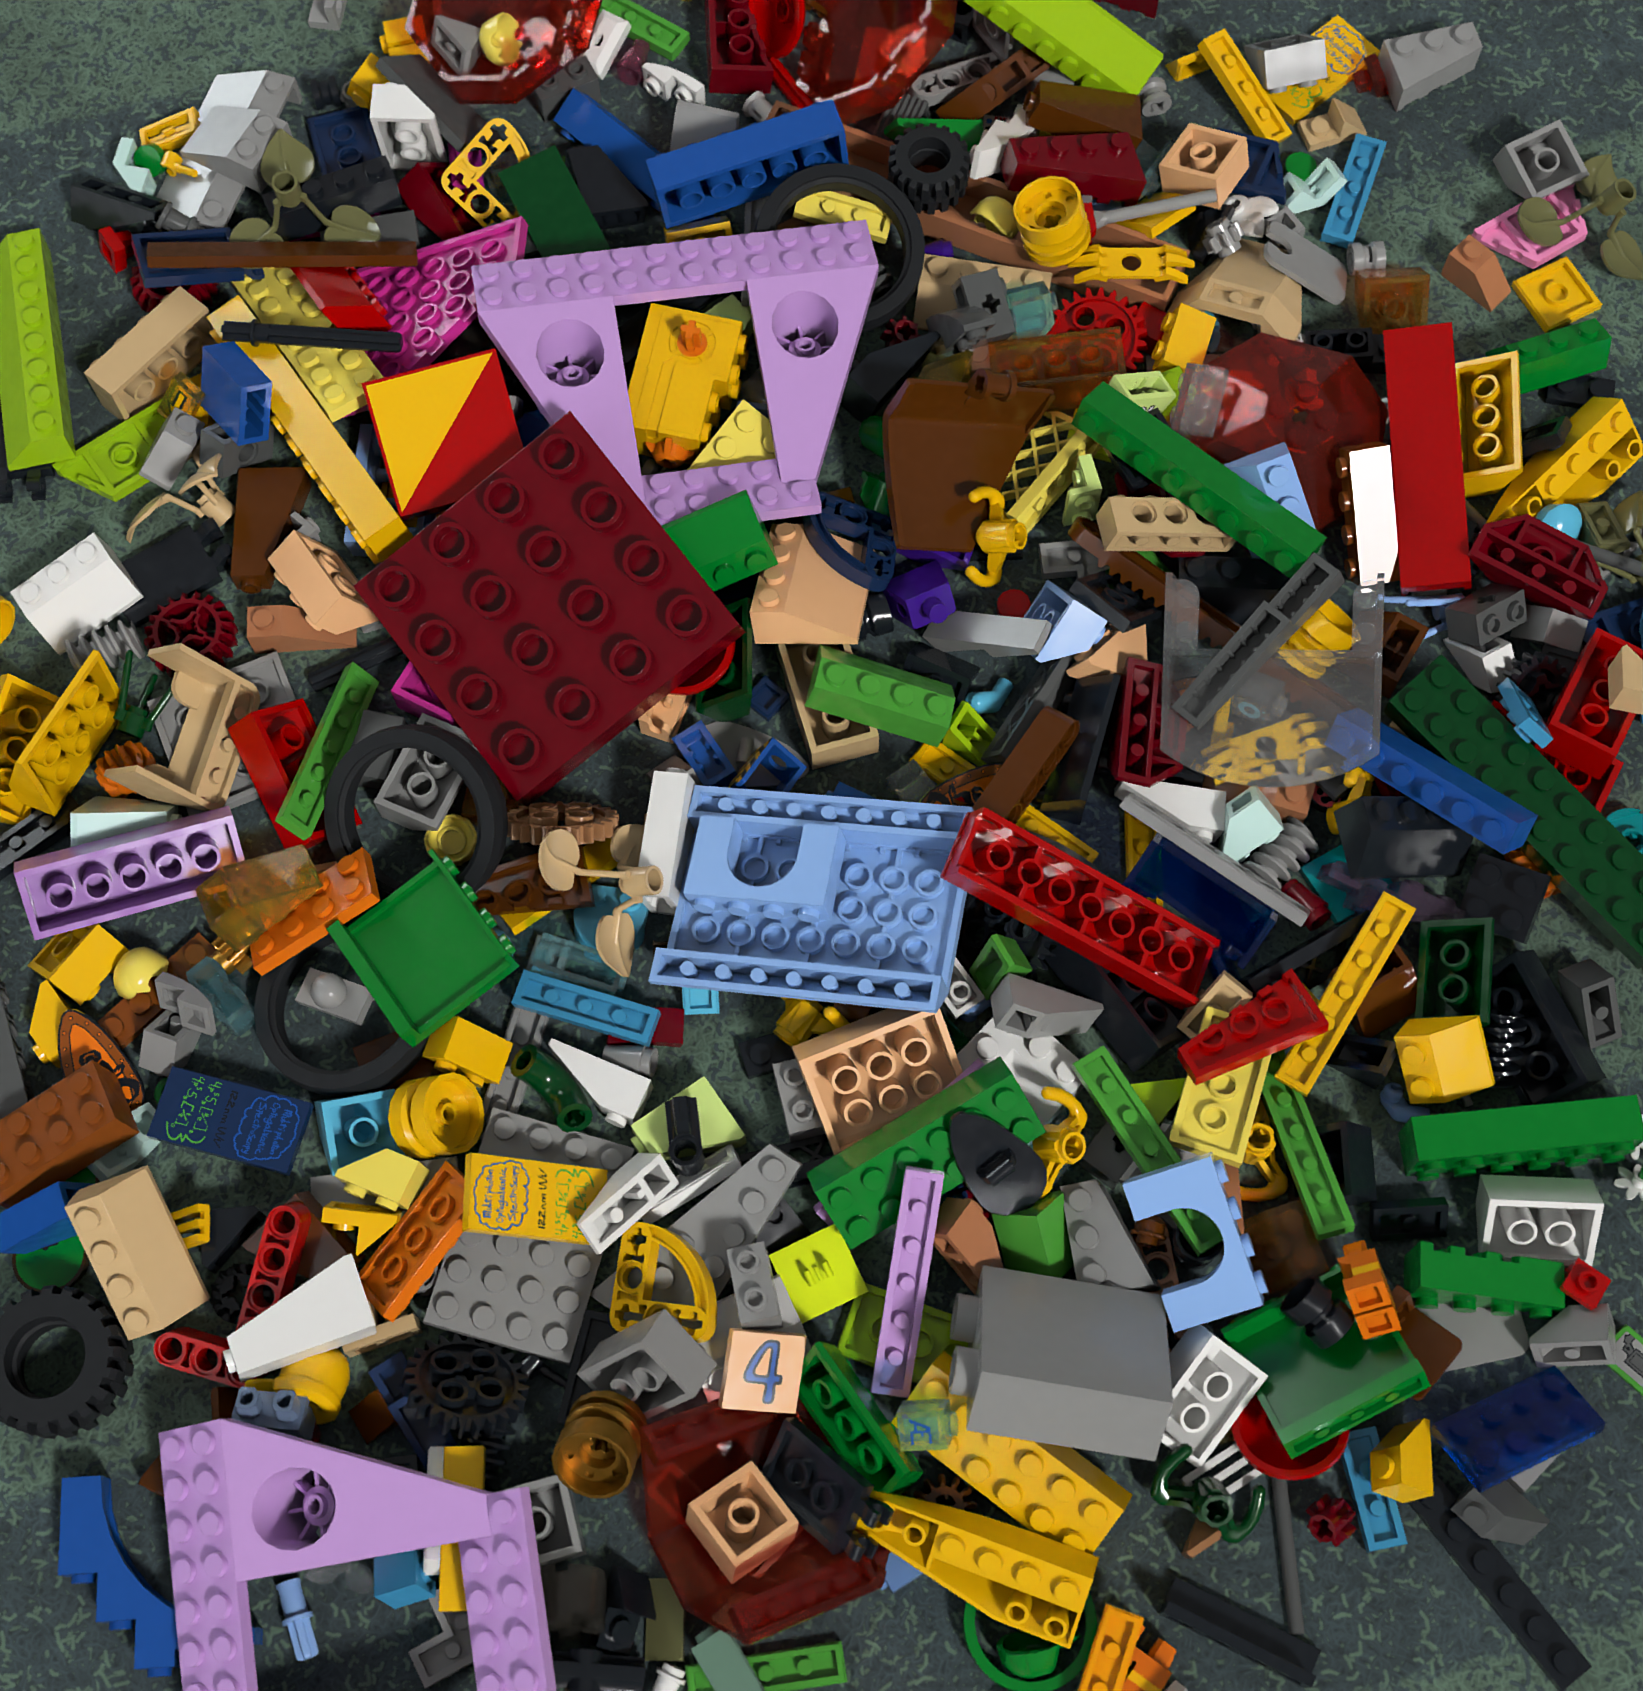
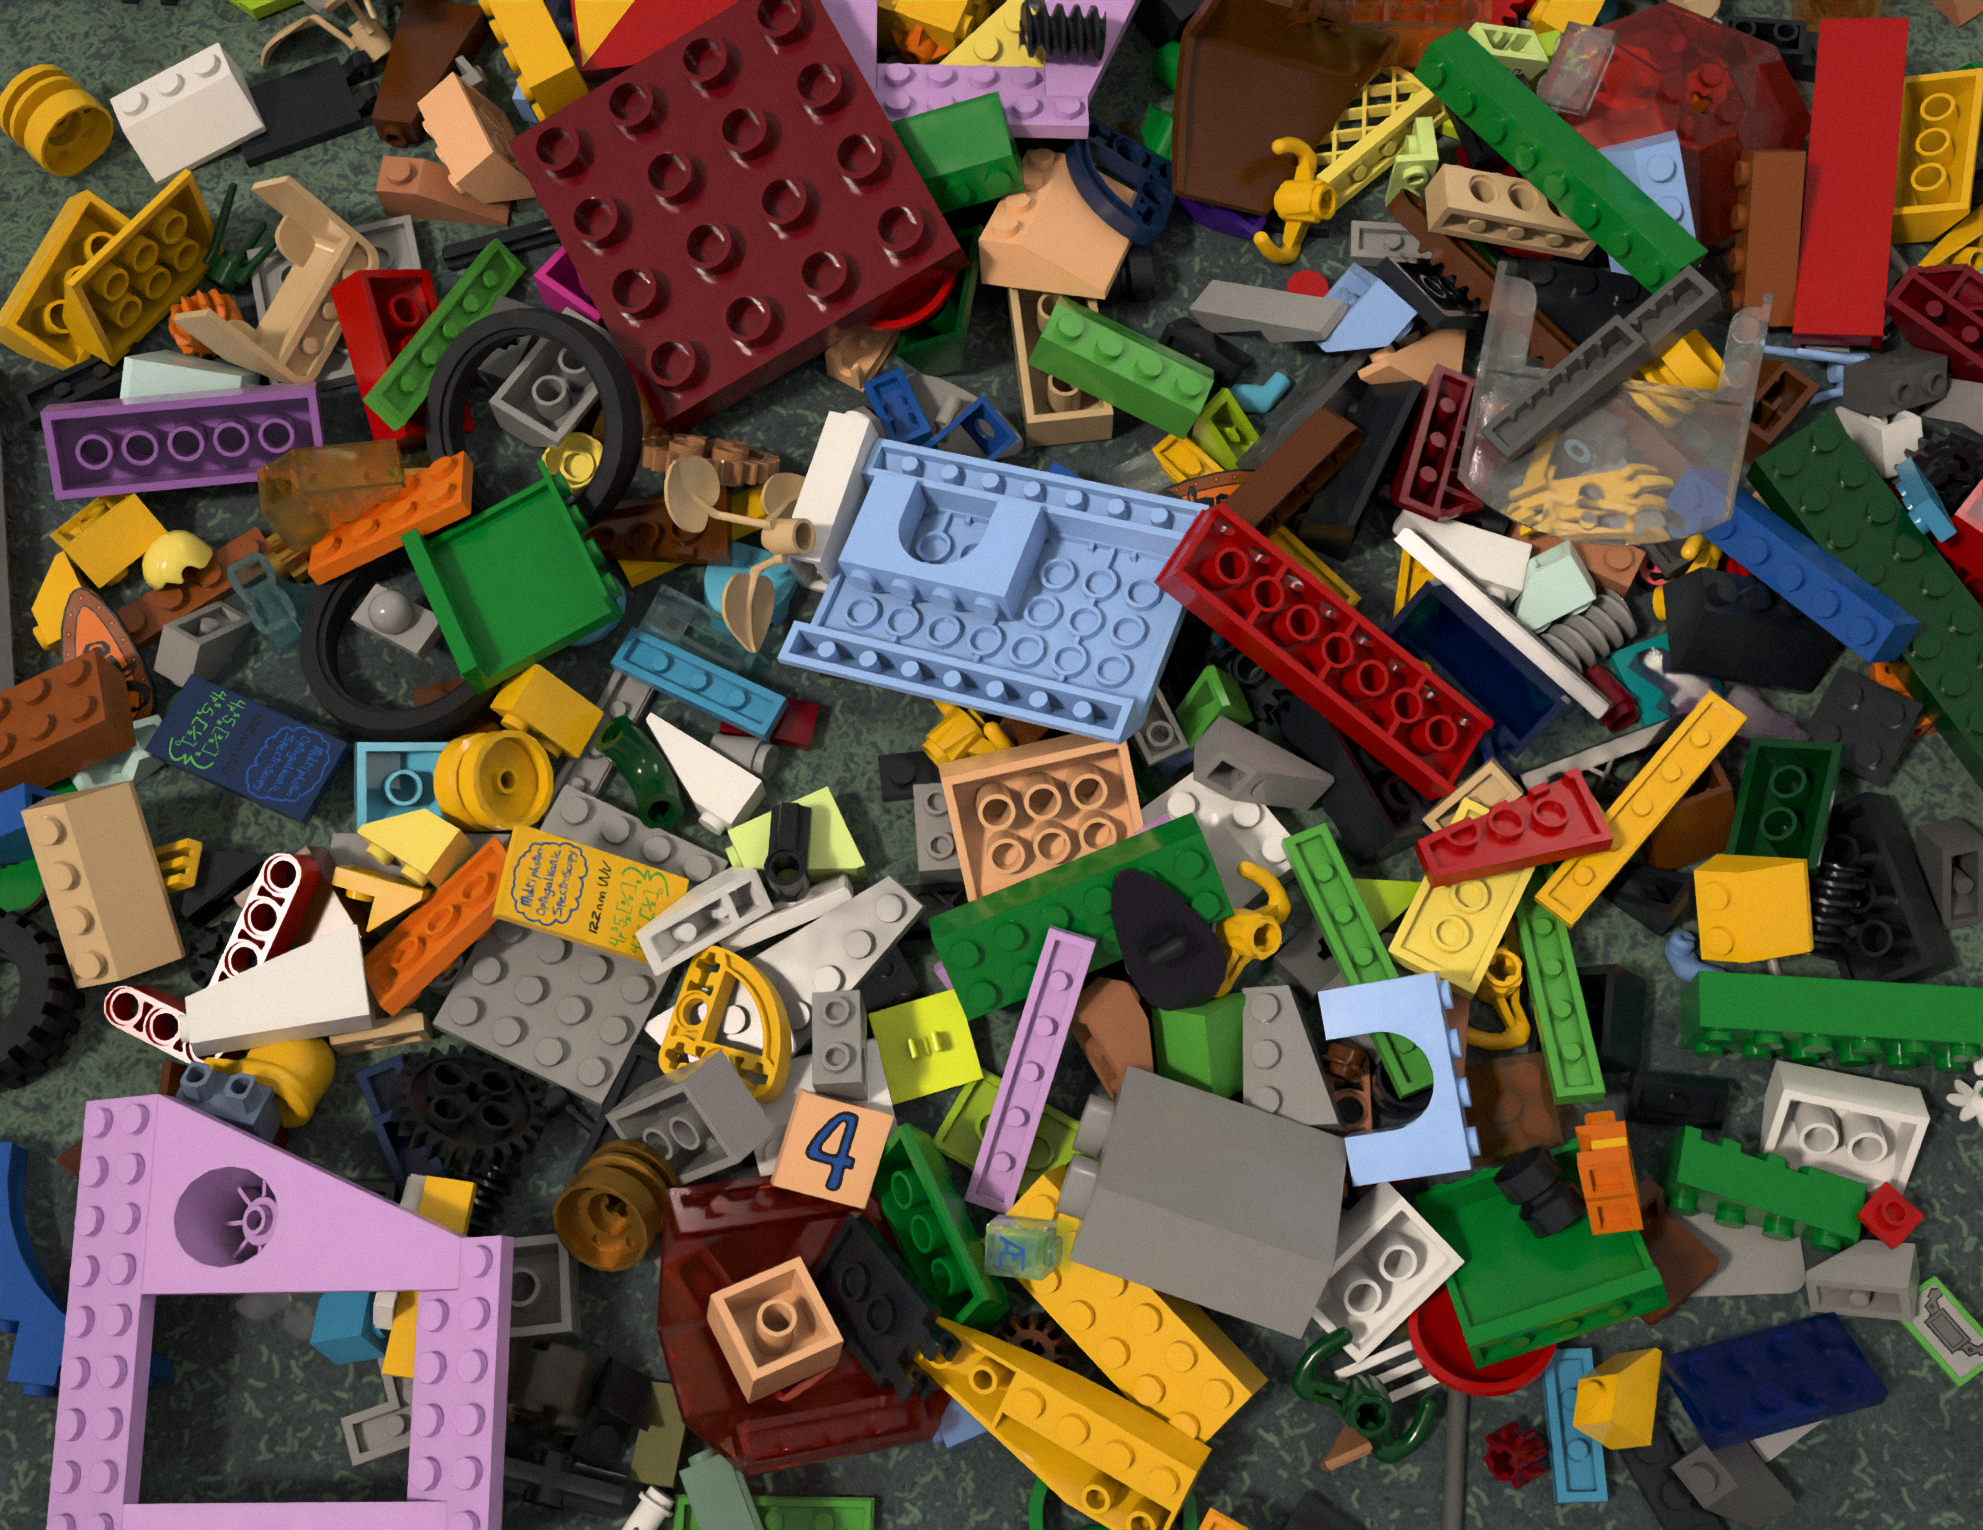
camera: 10 degrees right, 0 degrees up
(110, 646) = (215, 180): light grey piece -> none
(186, 1000) = (222, 600): light grey slope -> none
(189, 618) = (314, 166): dark red gear -> none
(297, 1619) = (216, 1356): light blue axle -> none
(373, 1417) = (353, 1130): reddish brown slope -> none
(700, 1001) = (841, 696): medium azure tile -> none
(768, 698) = (987, 355): dark blue tile -> none
(787, 430) = (1062, 31): none -> black piece
(920, 596) = (1196, 260): dark purple torso -> none

